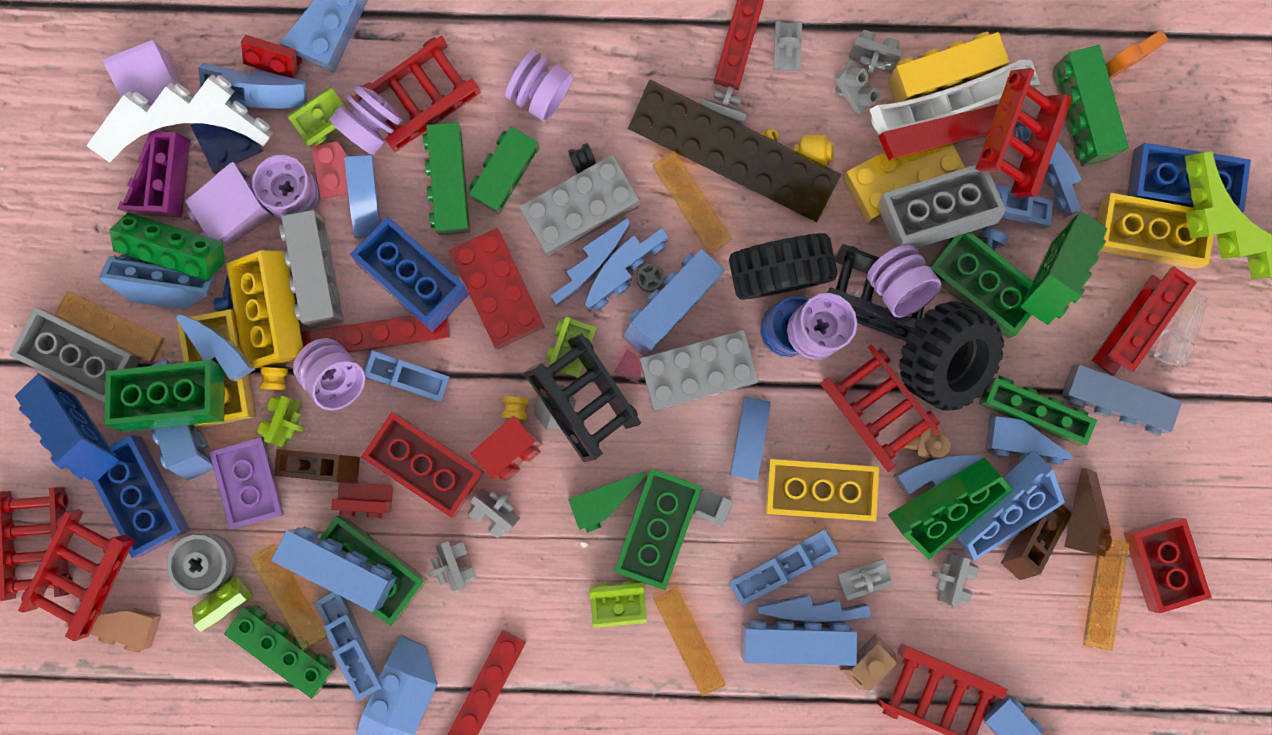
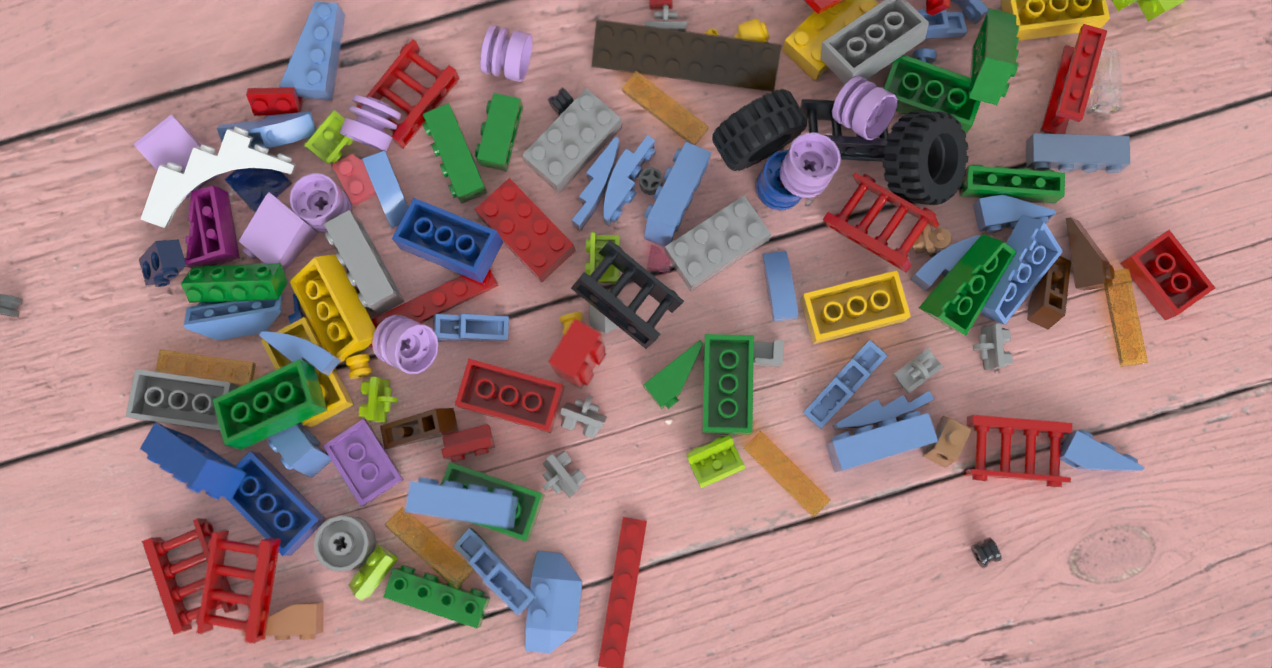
camera: 10 degrees left, 5 degrees down
(96, 198) = (162, 262): none -> dark blue brick

